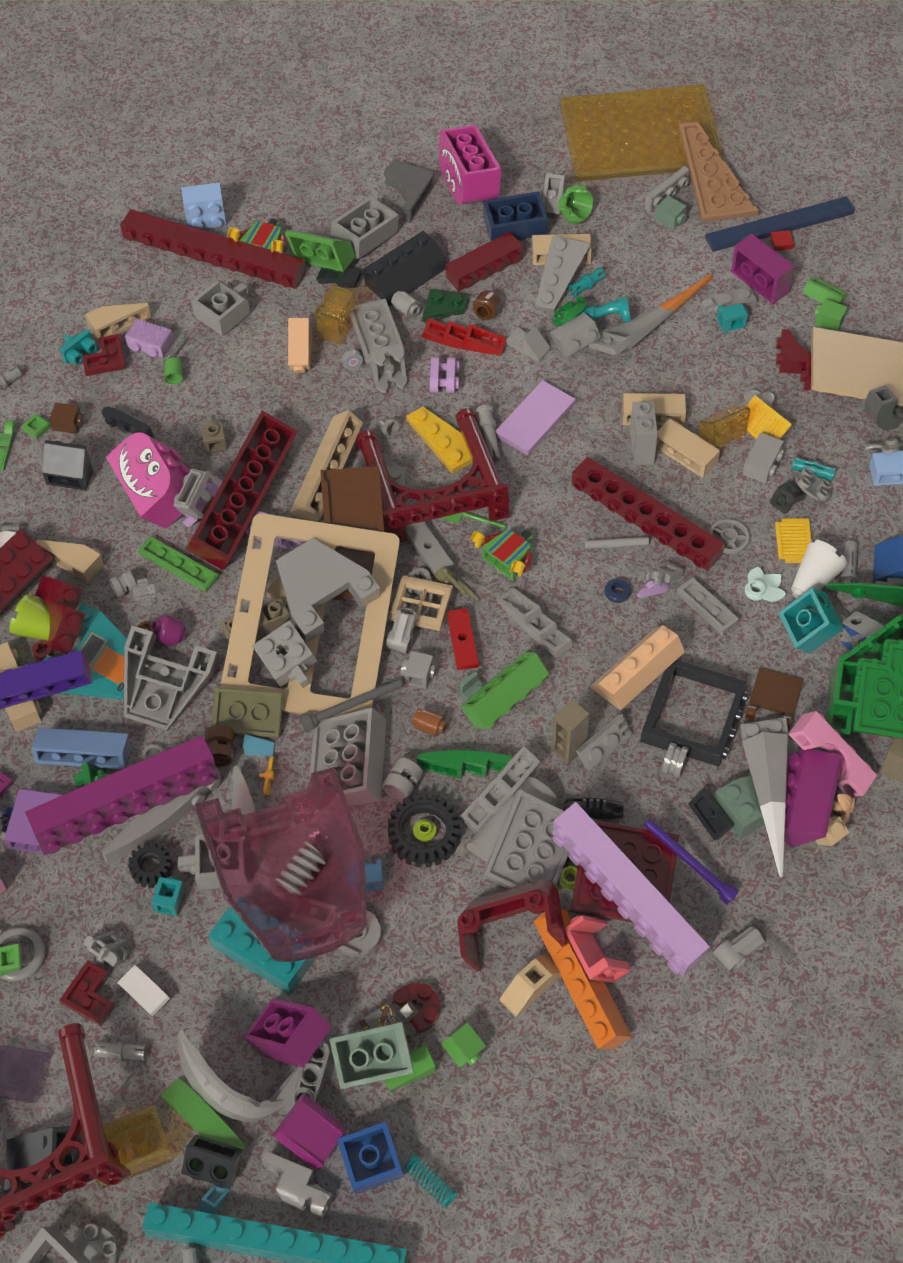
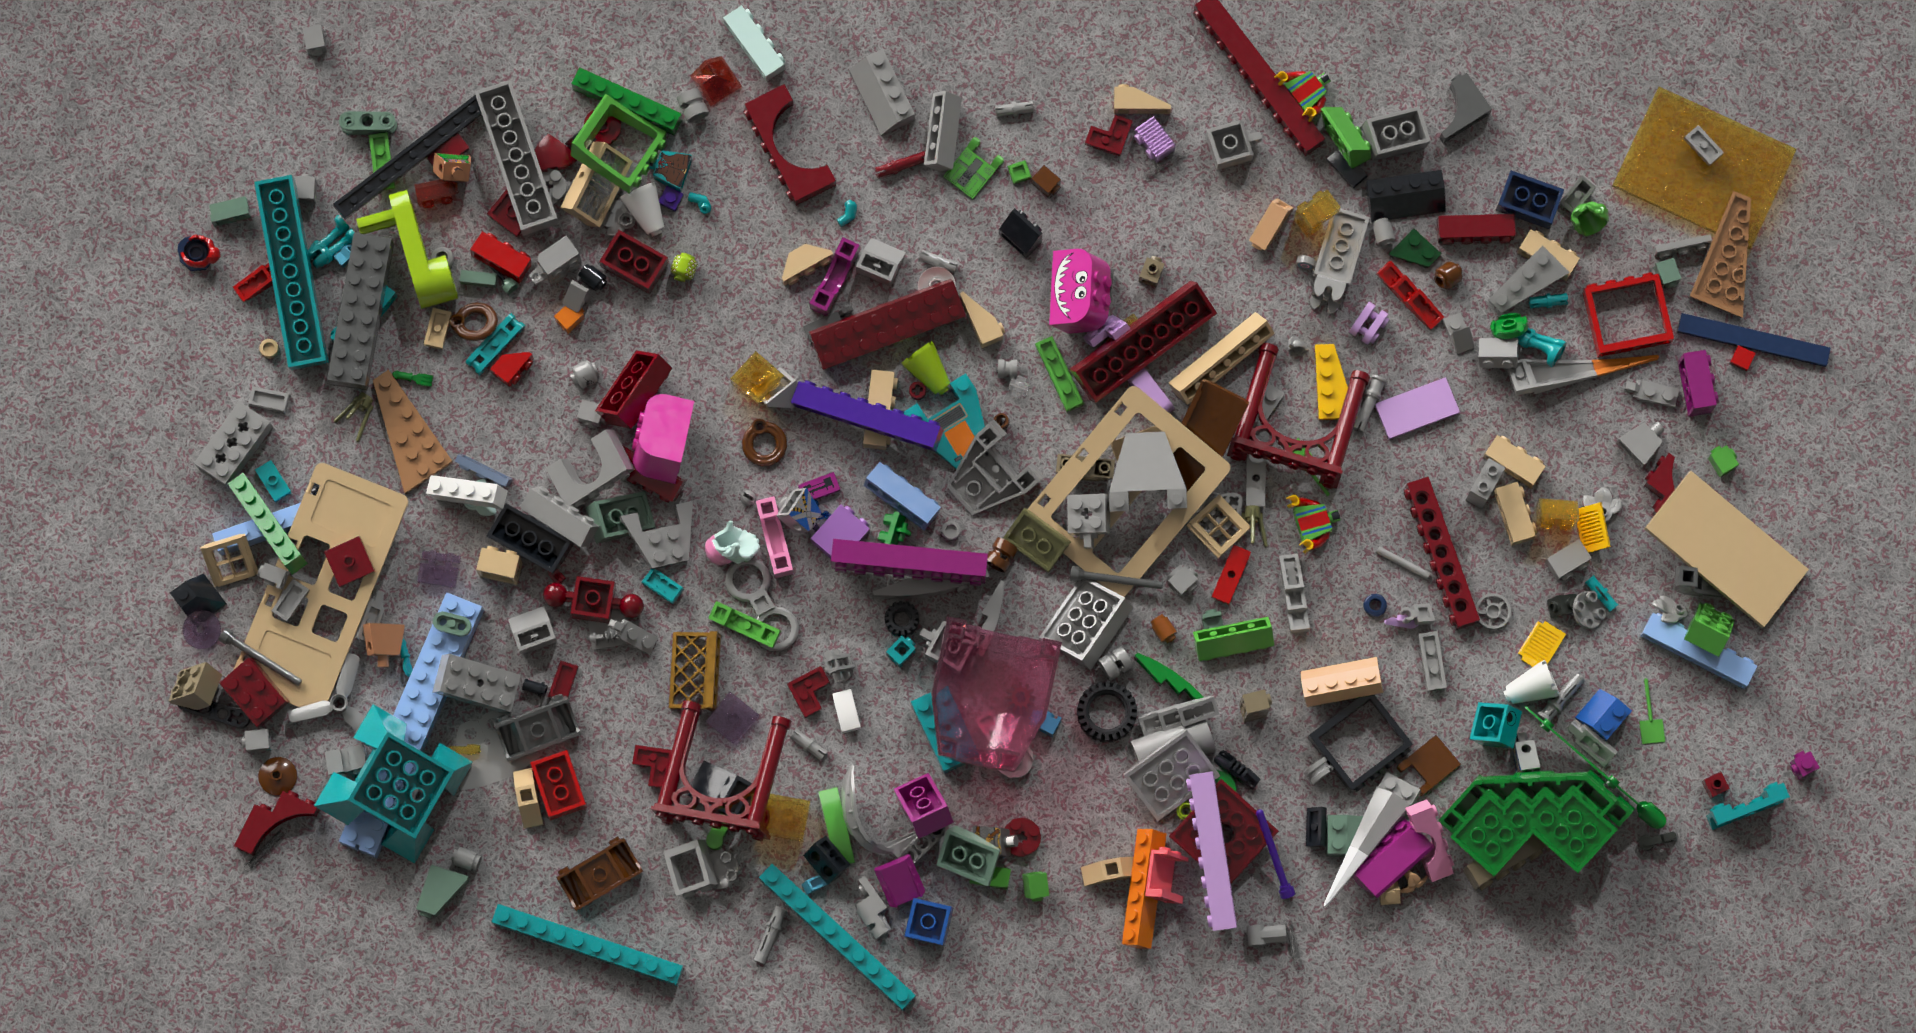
camera: 30 degrees right, 20 degrees up
(64, 618) = (951, 364): dark red arch -> none
(67, 1211) = (715, 837): none -> bright green leg
(76, 345) = (1092, 109): teal hips -> none
(124, 422) = (1089, 216): black hinge -> none
(168, 630) = (1018, 433): magenta head -> none
(173, 371) = (1156, 185): bright green beam -> none
(192, 491) = (1100, 330): light grey window -> none
(204, 206) = (1274, 28): light blue brick -> none
(257, 746) = (1030, 570): medium azure piece -> none
(268, 776) = (1023, 599): yellow piece -> none
(301, 869) = (1000, 696): light grey piece -> none
(401, 636) = (1186, 545): light grey piece -> none
(412, 1163) = (950, 942): teal piece -> none
(424, 836) = (1105, 717): lime plate -> none
(468, 165) = (1522, 124): dark pink brick -> none
(533, 897) = (1147, 816): dark red windscreen -> none
(604, 742) = (1279, 724): light grey hinge -> none
(628, 113) = (1703, 145): none -> light grey plate
(679, 278) = (1633, 344): none -> red window
(732, 317) = (1641, 412): teal brick -> none
(751, 339) = (1641, 442): none -> light grey torso
(766, 584) = (1490, 670): light aqua plate -> none
(822, 290) = (1739, 433): bright green slope -> none

